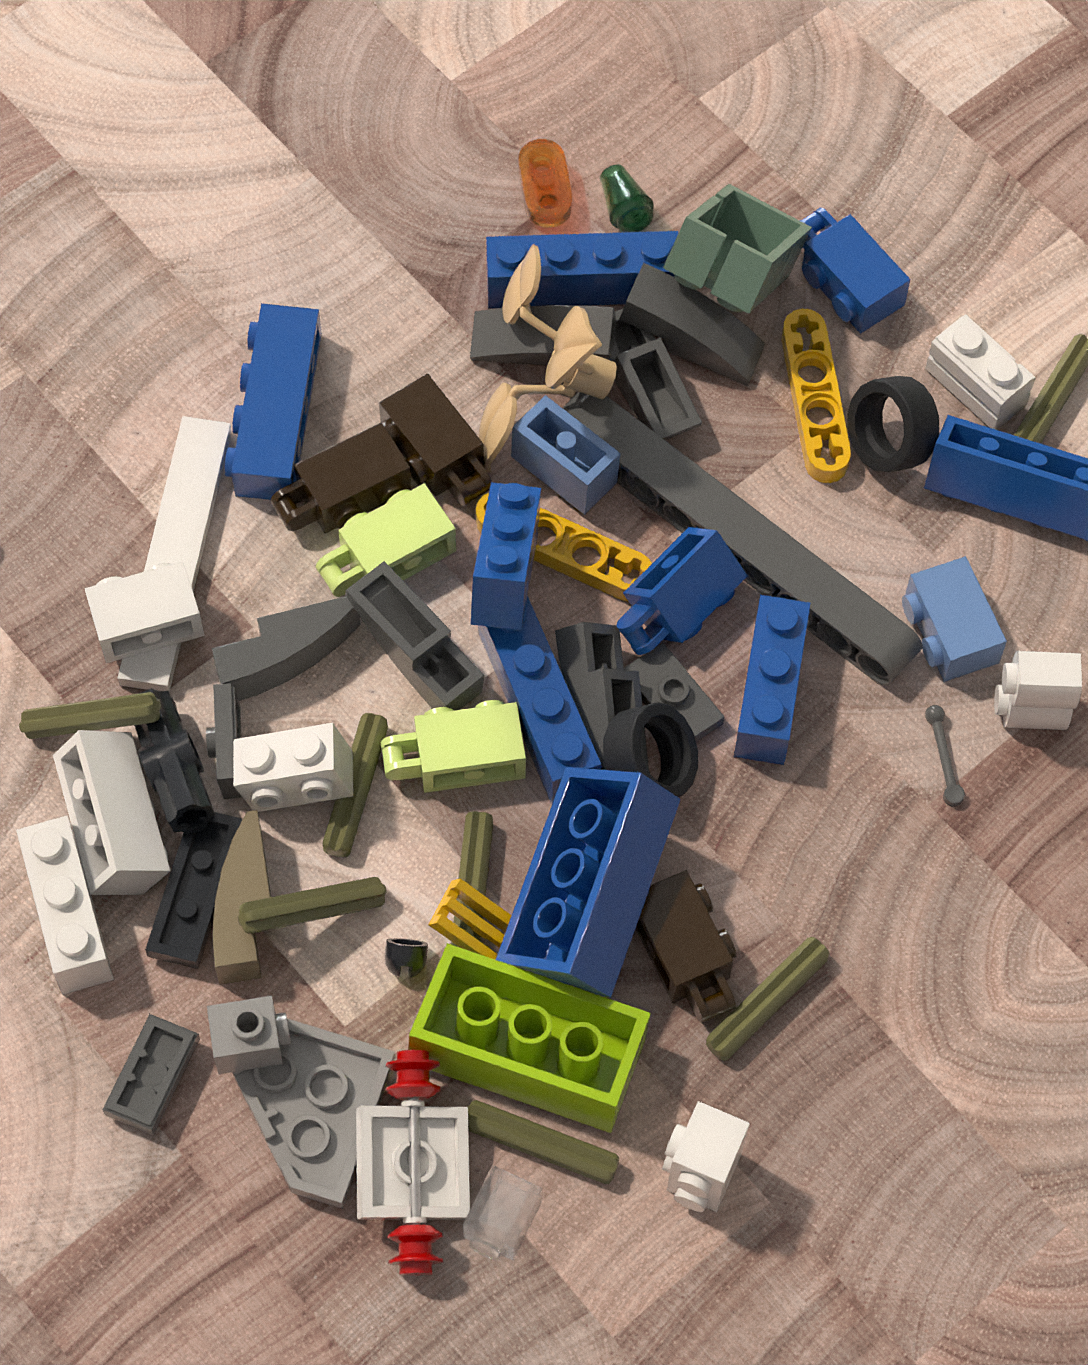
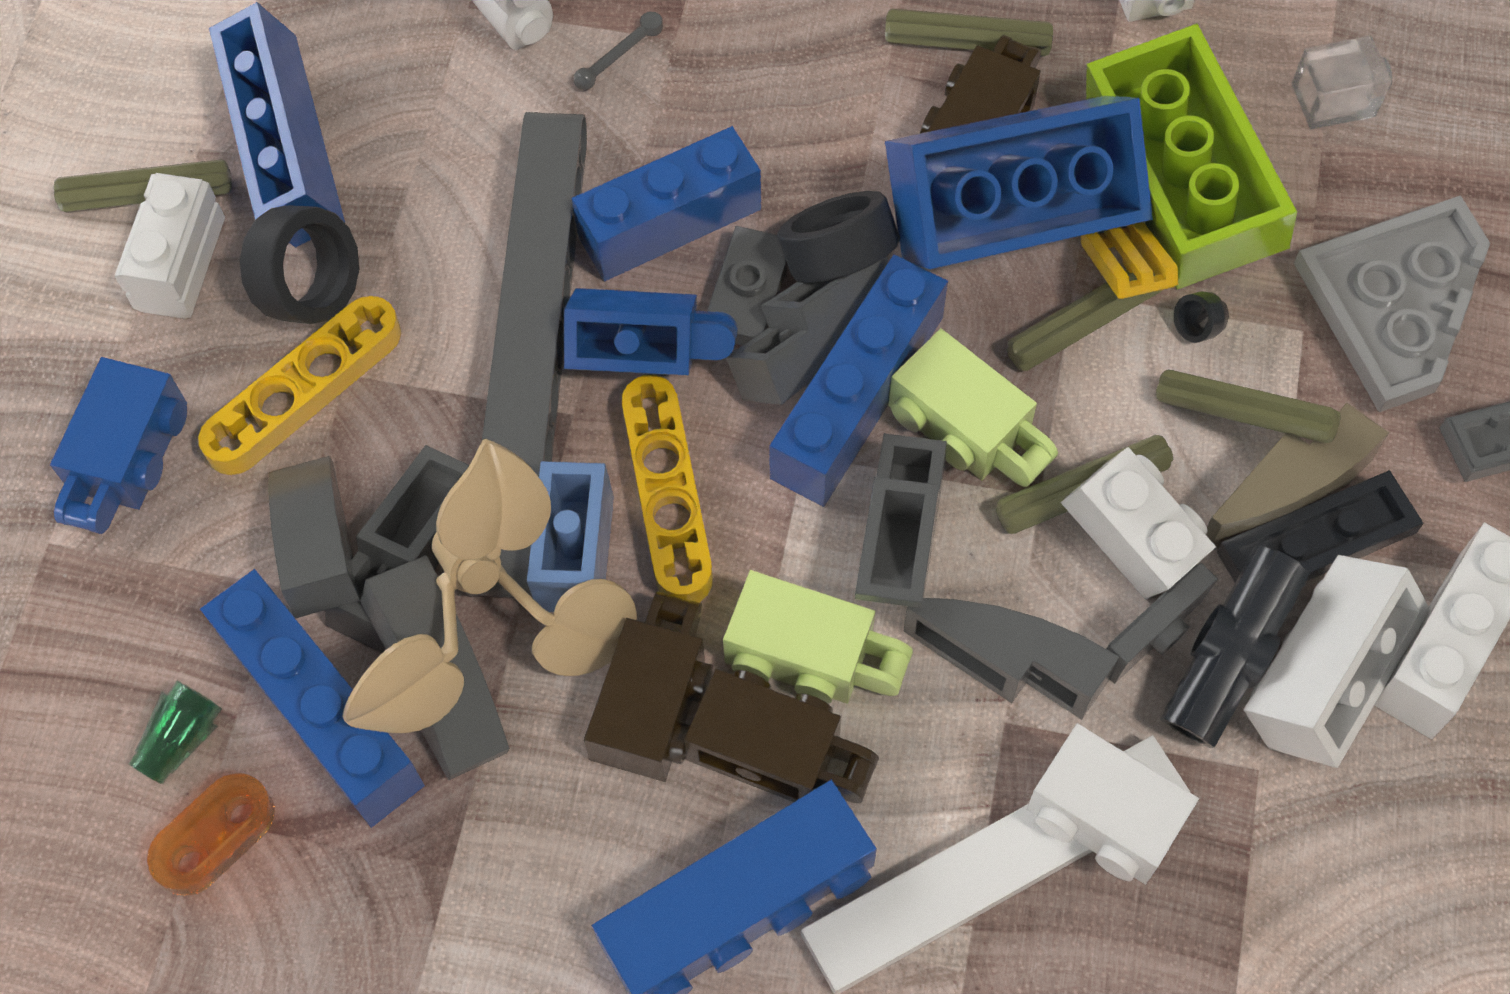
camera: 125 degrees left, 0 degrees up
(90, 715) = (1266, 765): olive axle -> none
(247, 1034) = (1420, 352): light grey brick -> none
(413, 1163) = (1378, 163): white plate -> none
(505, 556) = (757, 467): blue brick -> none
(542, 1142) = (1254, 103): olive axle -> none
(736, 248) = (186, 520): sand green piece -> none
(953, 619) = (476, 108): medium blue brick -> none

